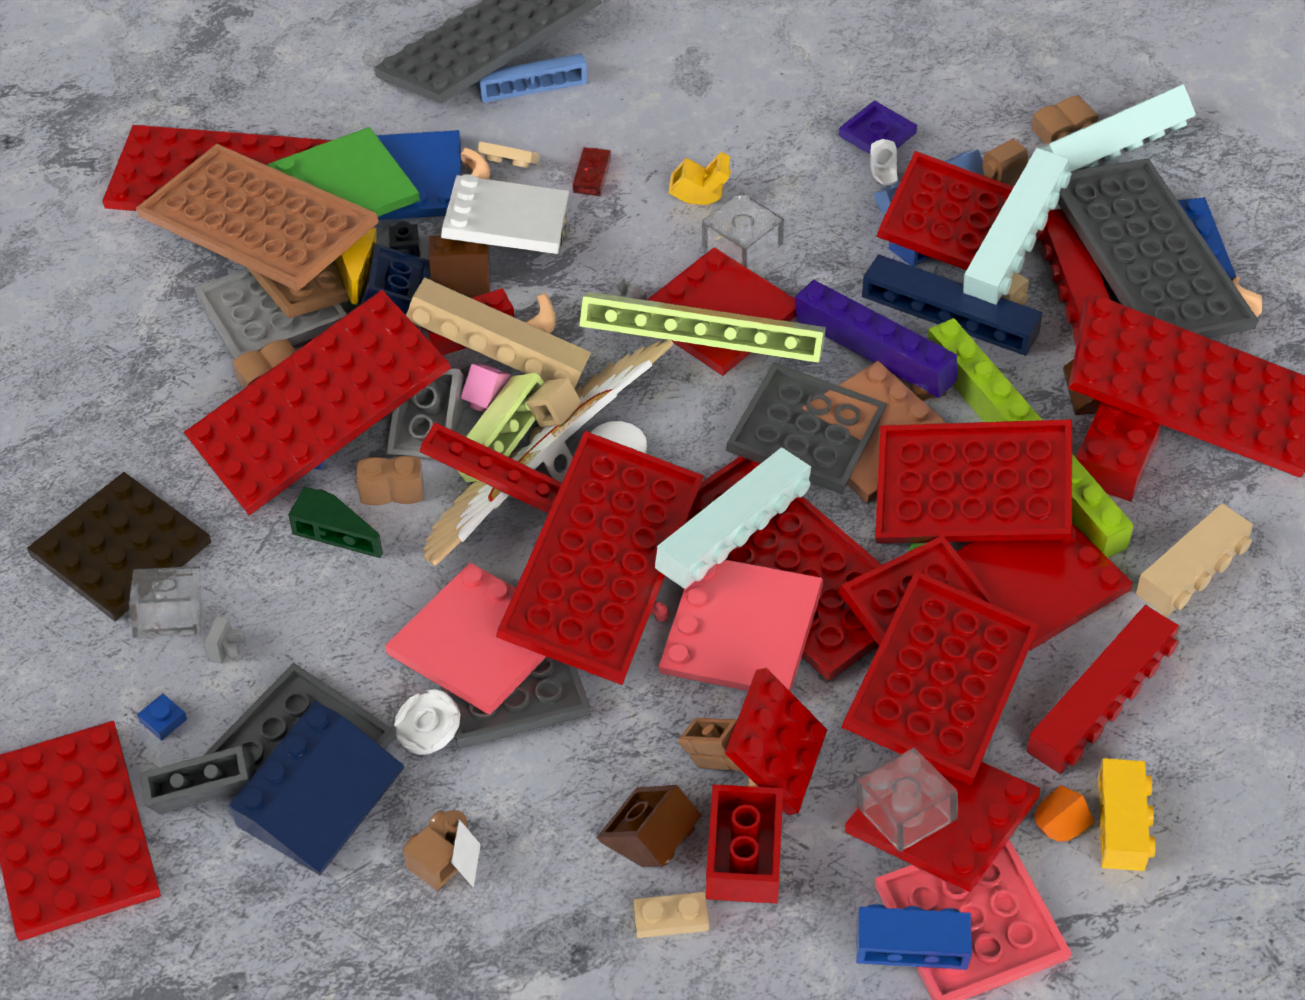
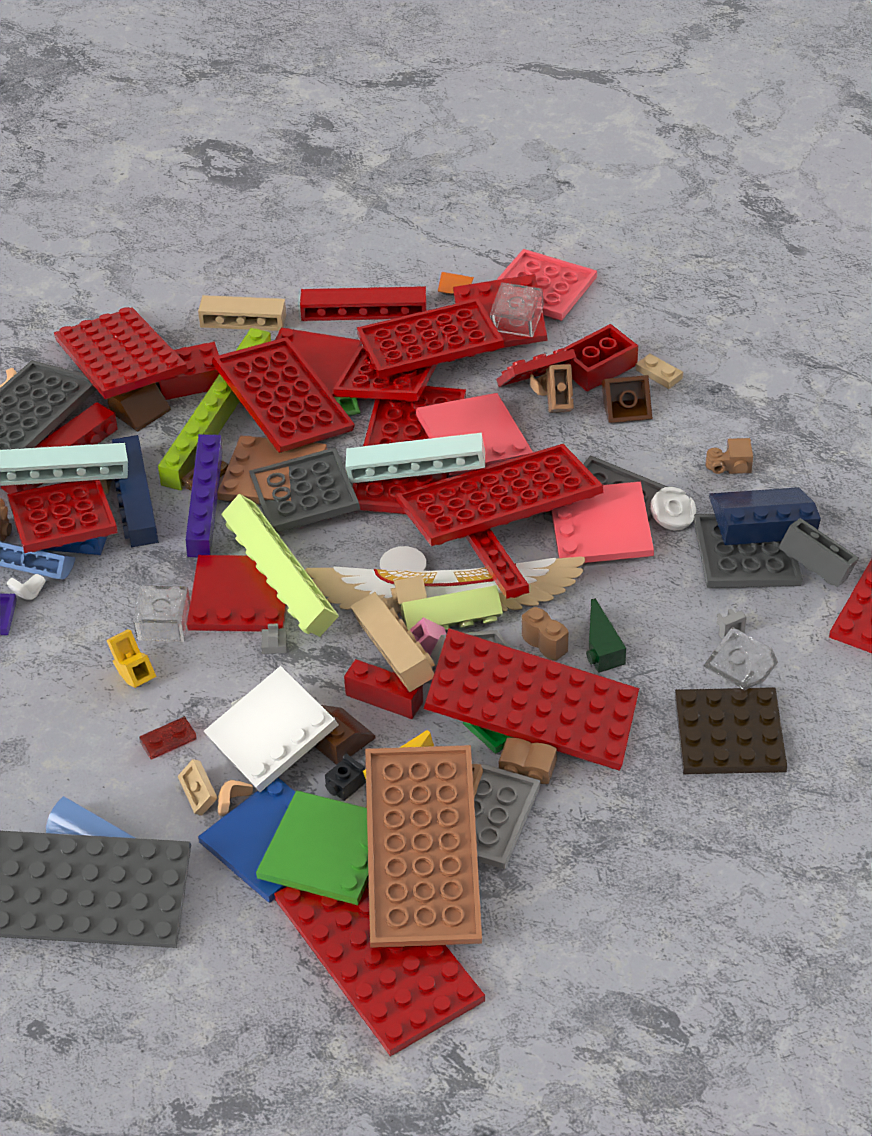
camera: 130 degrees left, 5 degrees down
(162, 716) = (800, 619): blue plate -> none
(395, 274) = (395, 729): dark blue slope -> none
(466, 853) = (721, 443): white sticker -> none
(546, 318) = (335, 658): light nougat hair -> none
(913, 937) = (581, 280): blue brick -> none
(1125, 815) = (428, 265): yellow brick -> none

